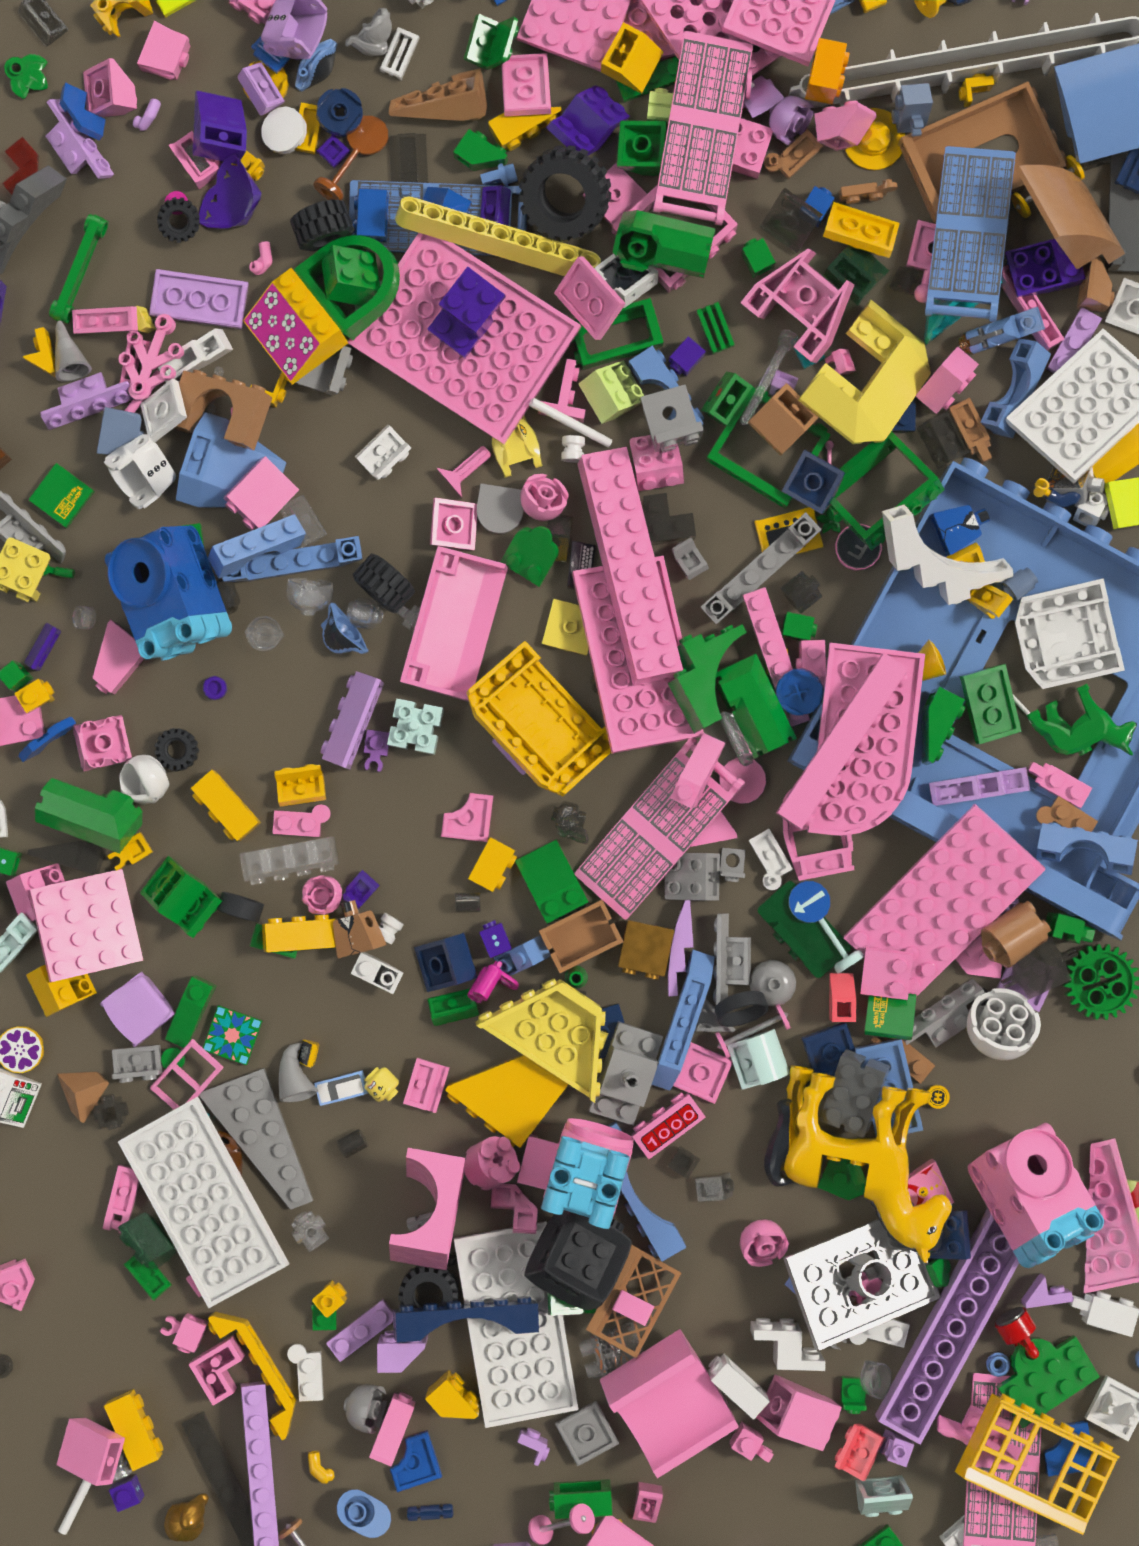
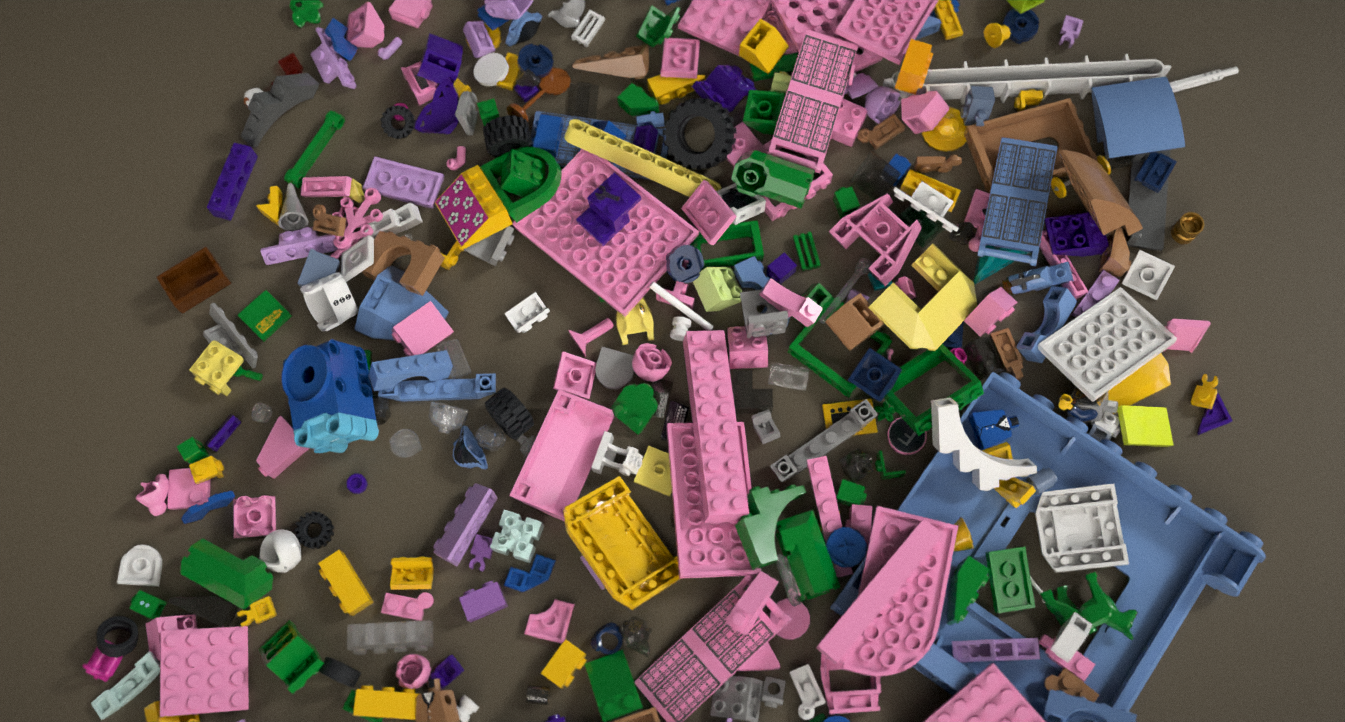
camera: 10 degrees right, 15 degrees down
(118, 369) = (328, 223): none -> medium nougat hinge
(264, 196) = (466, 112): none -> light grey tile
(292, 192) = (488, 110): none -> green brick
(334, 138) = (528, 78): none -> clear smoke tile
(388, 806) = (483, 601): none -> medium lavender brick
(431, 776) = (524, 581): none -> blue tile
(464, 300) = (605, 194): none -> clear smoke hand
(506, 614) = (607, 453): none -> white tile
(538, 817) = (611, 628): none -> dark blue piece
(557, 364) = (674, 263): none -> dark blue plate
(703, 404) = (799, 307): none -> bright pink slope
(710, 491) = (788, 376): none -> clear slope
(831, 591) = (880, 467): none -> green bracket
(862, 251) = (931, 202): none -> white bracket
(912, 440) = (960, 354): none -> dark pink plate
(1061, 762) = (1071, 637): none -> white slope

